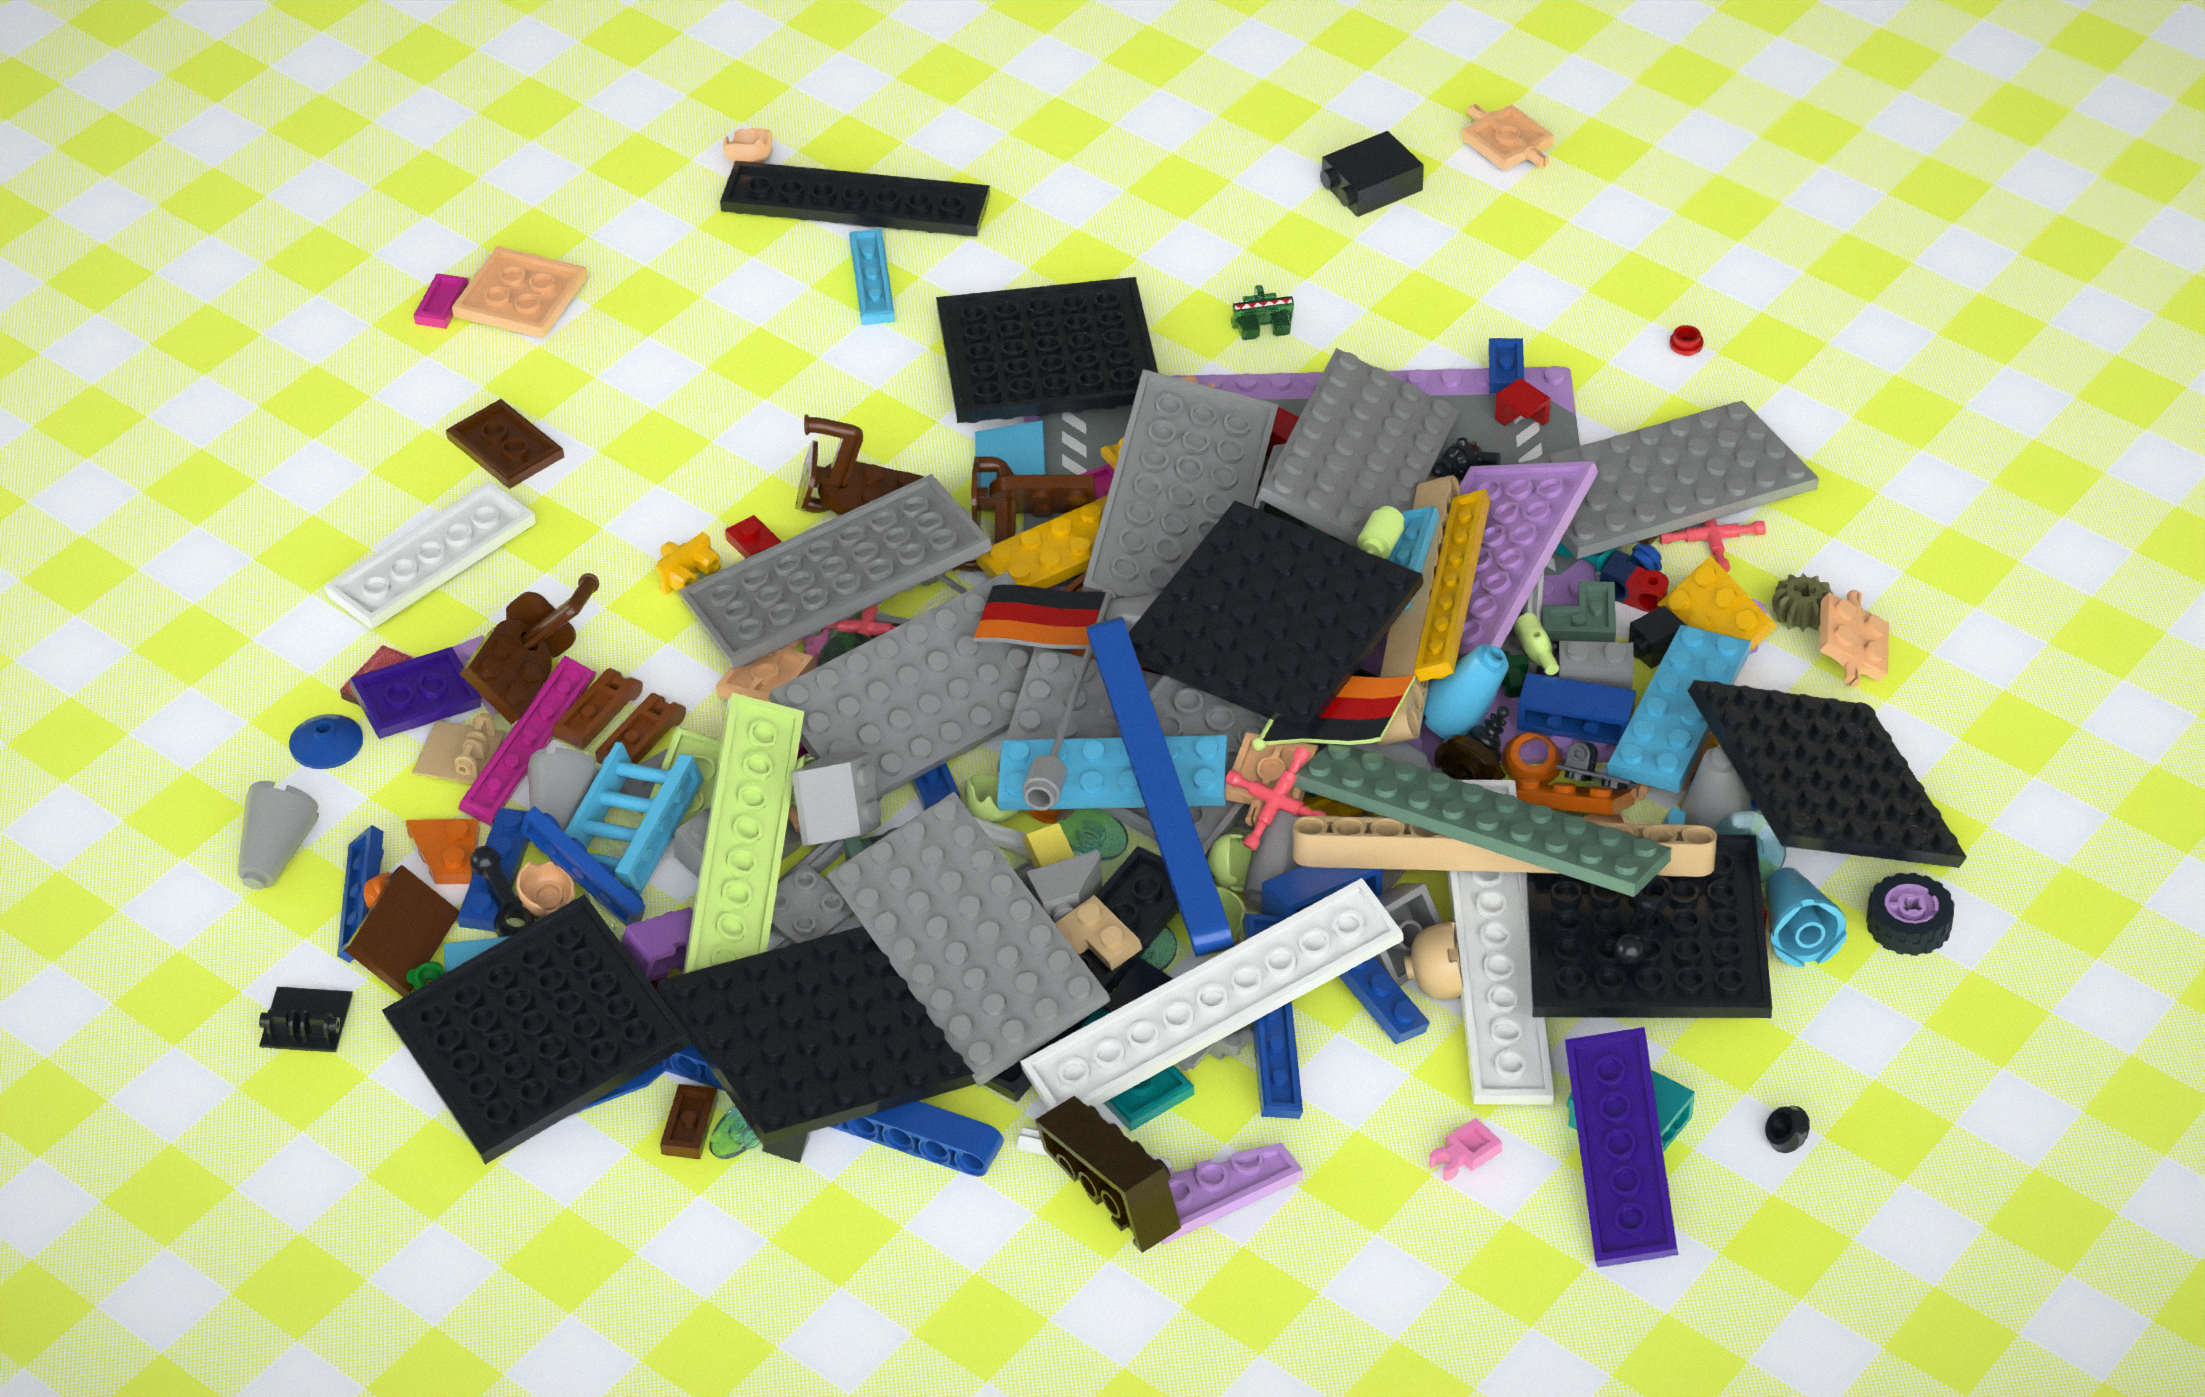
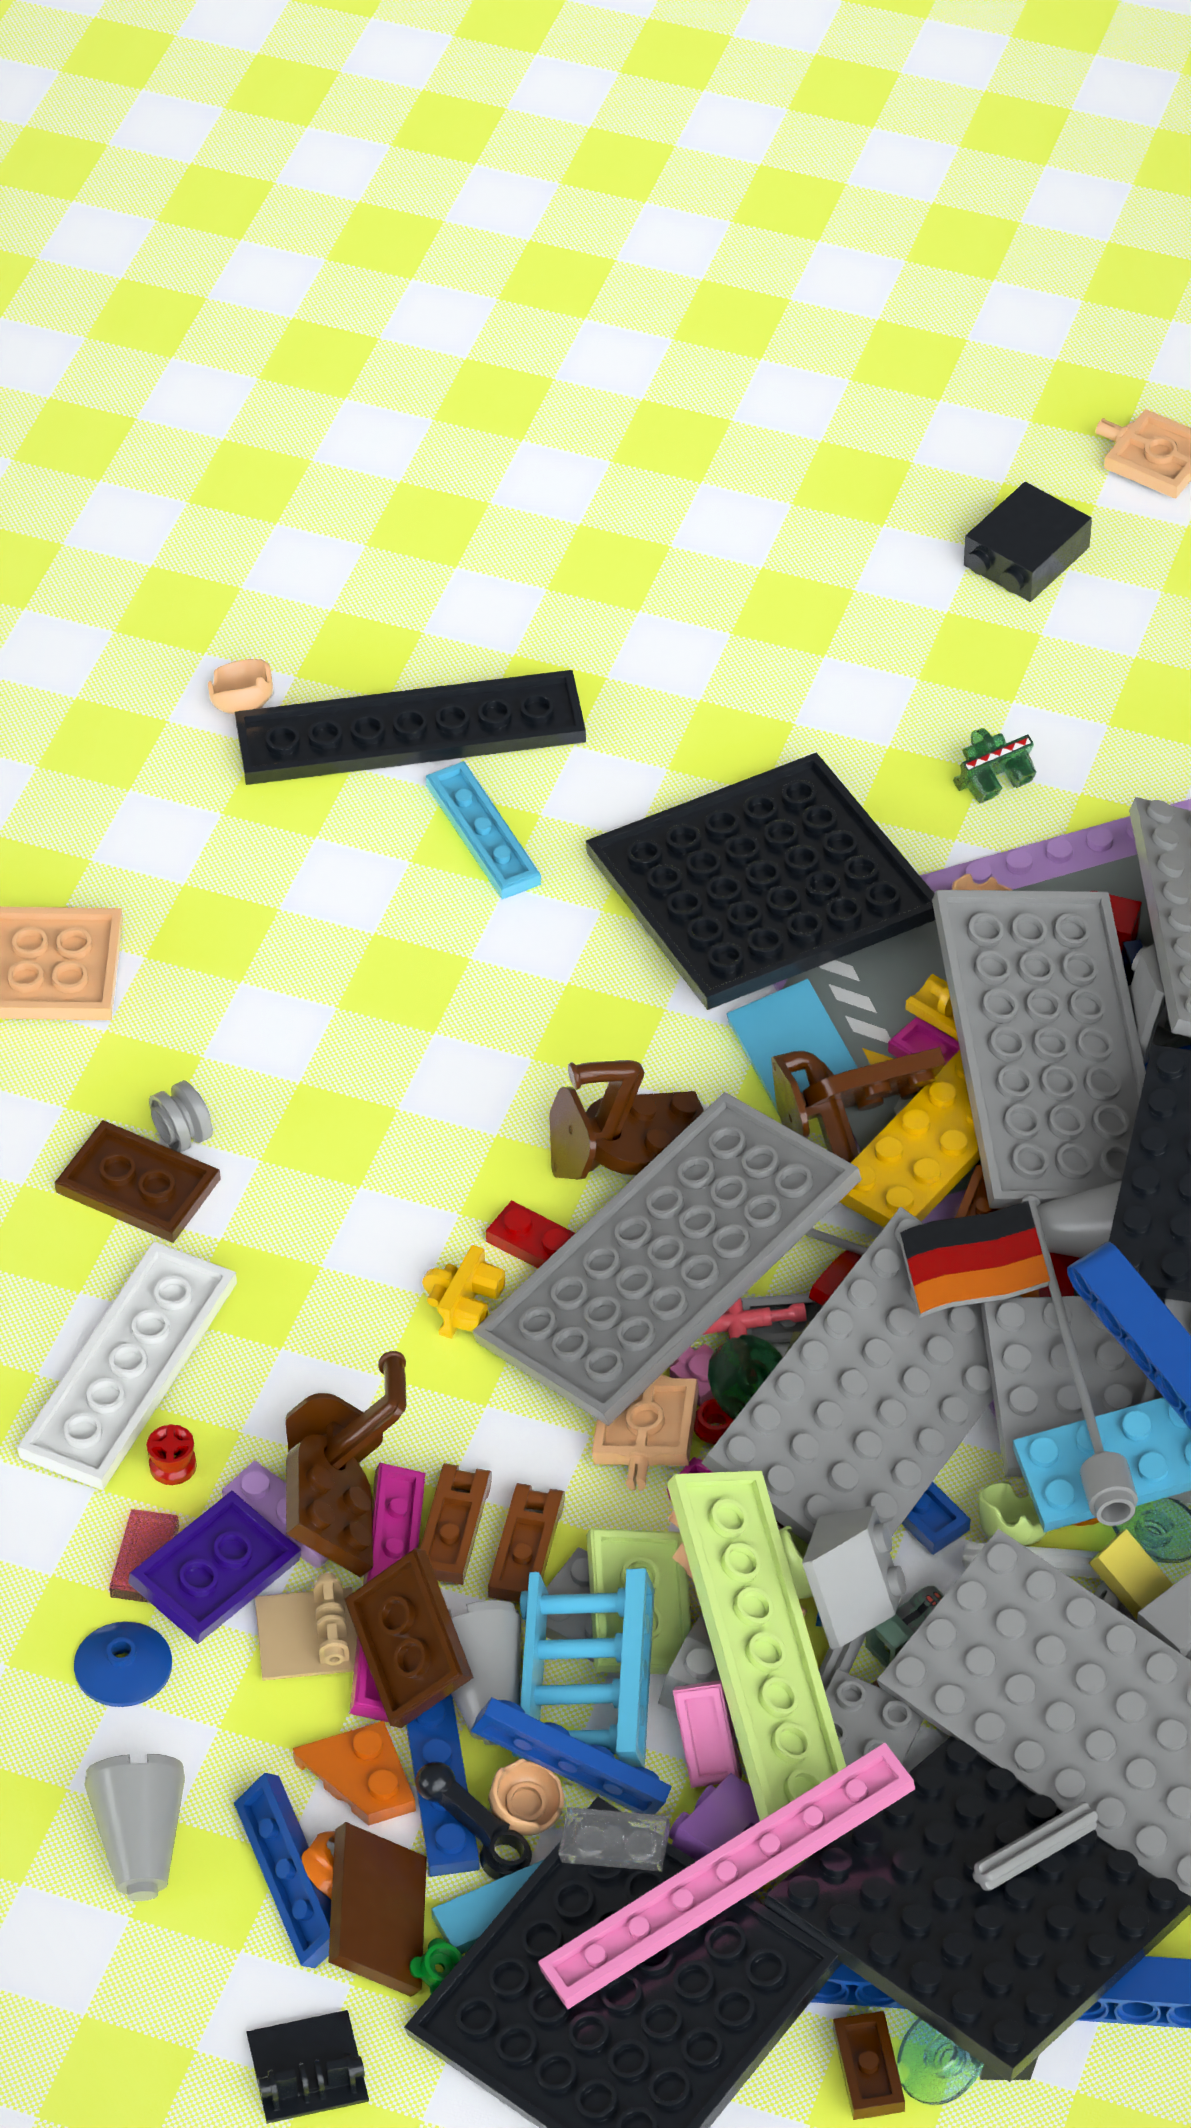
camera: 20 degrees left, 5 degrees up
(428, 617) = (162, 1447): none -> red wheel
(512, 763) = (408, 1638): none -> reddish brown tile
(551, 406) = (181, 1116): none -> light grey wheel
(575, 920) = (614, 1839): none -> clear plate
(637, 961) = (726, 1875): none -> bright pink plate
(684, 873) = (706, 1733): none -> bright pink tile
(869, 1003) = (1035, 1846): none -> light grey axle

